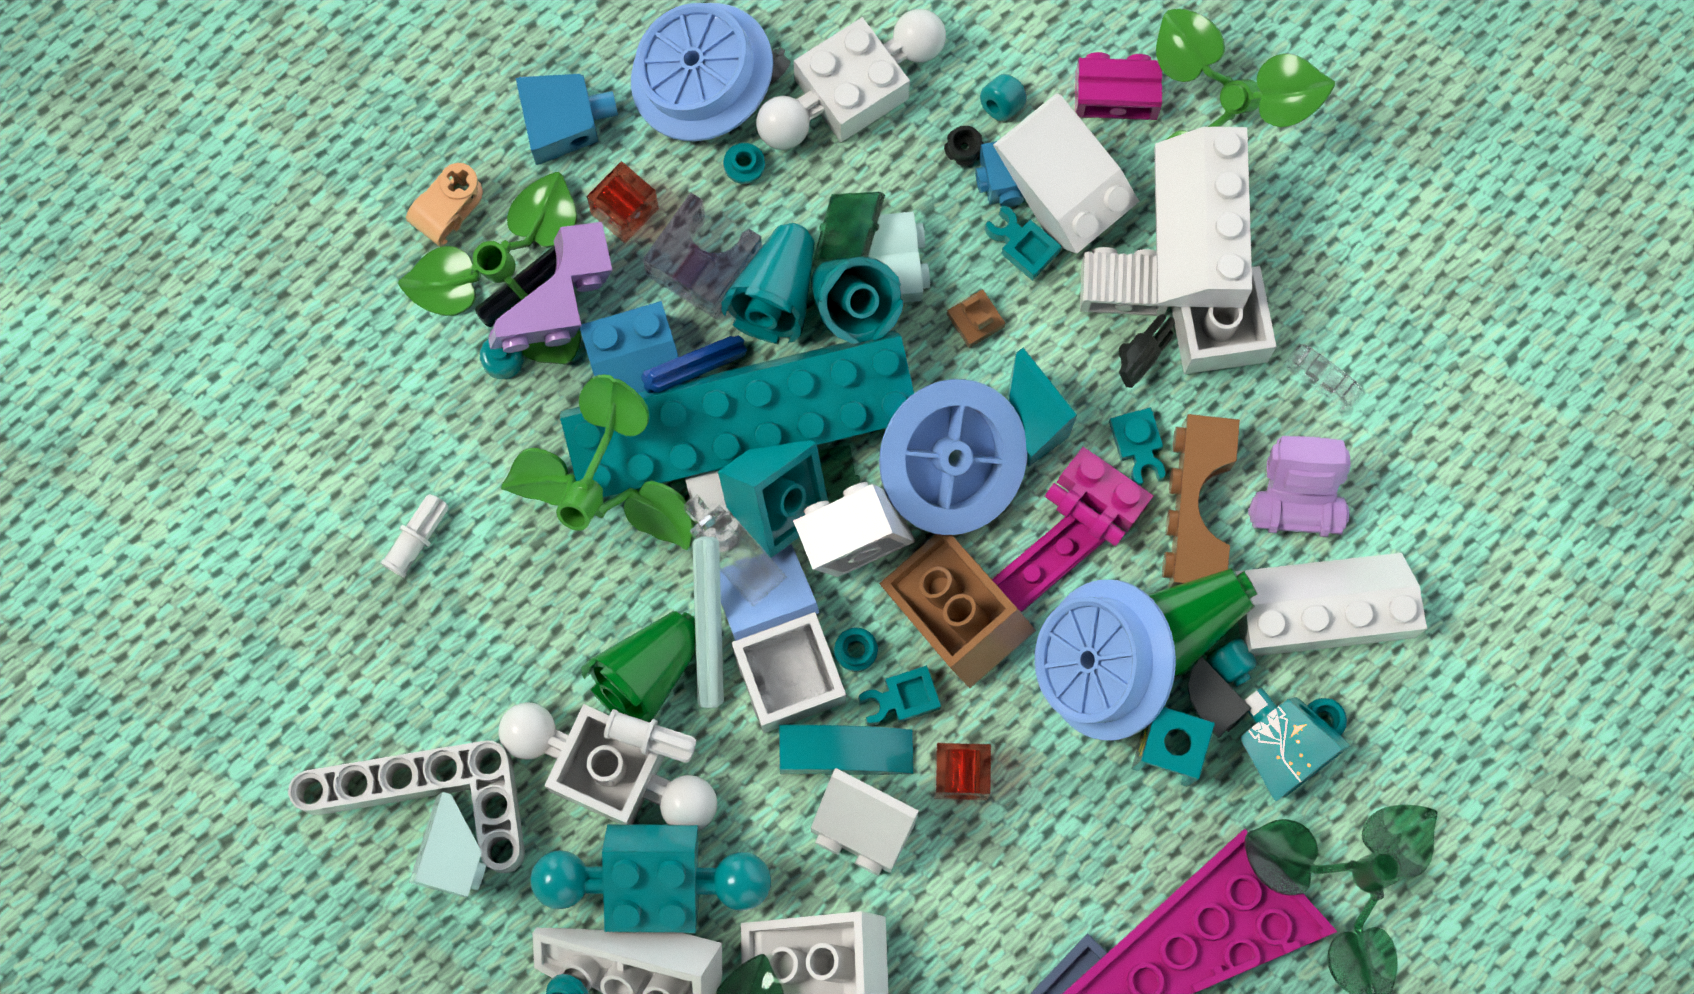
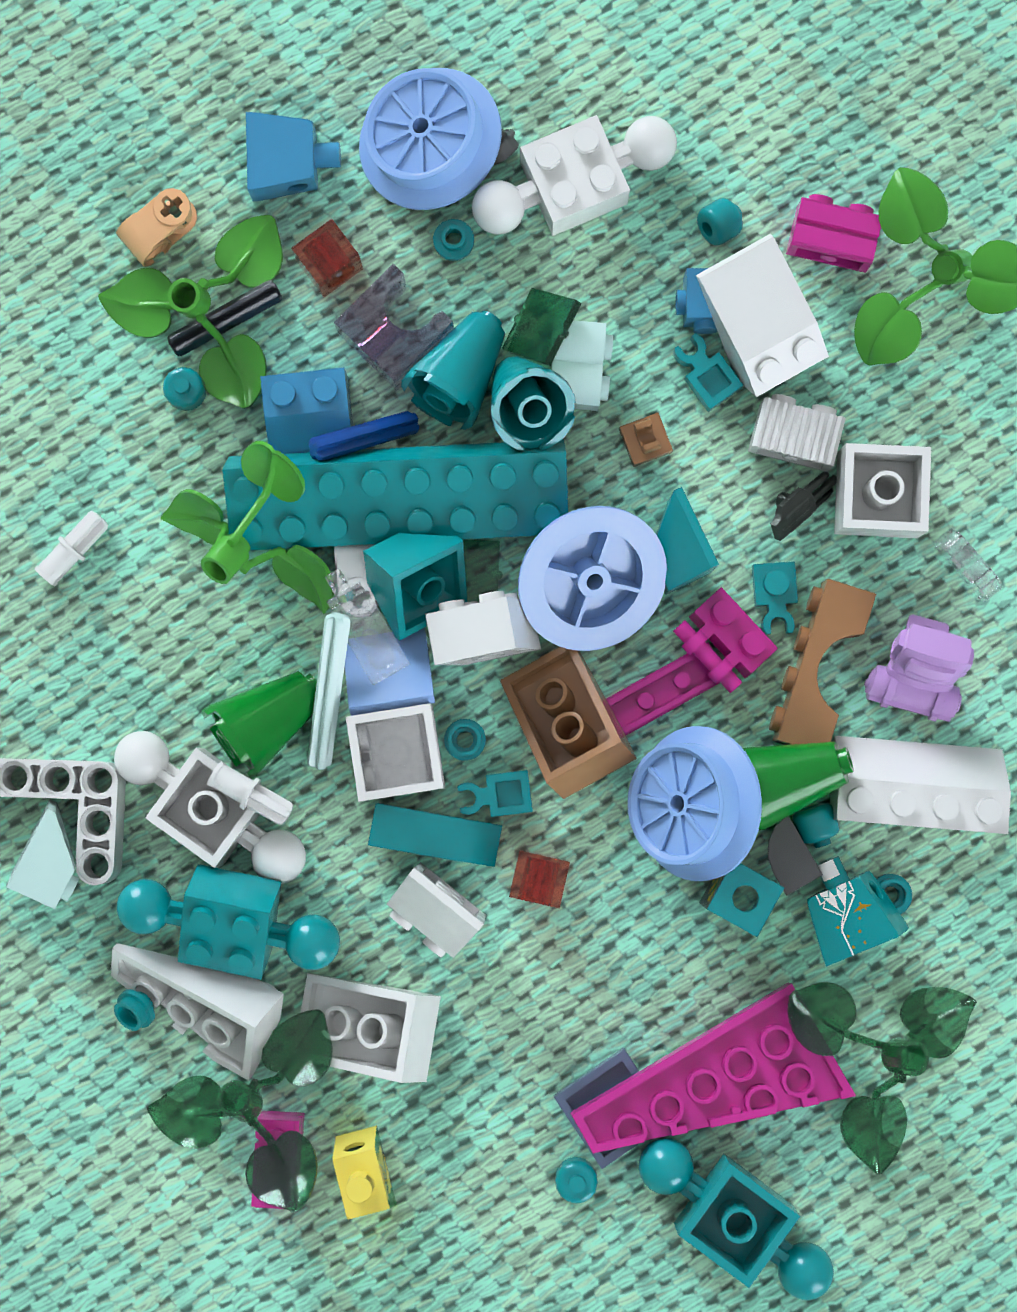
camera: 15 degrees right, 10 degrees up
(552, 310) = (237, 354): lavender arch -> none
(959, 136) = (668, 253): pearl dark grey plate -> none
(1203, 219) = (886, 390): white slope -> none

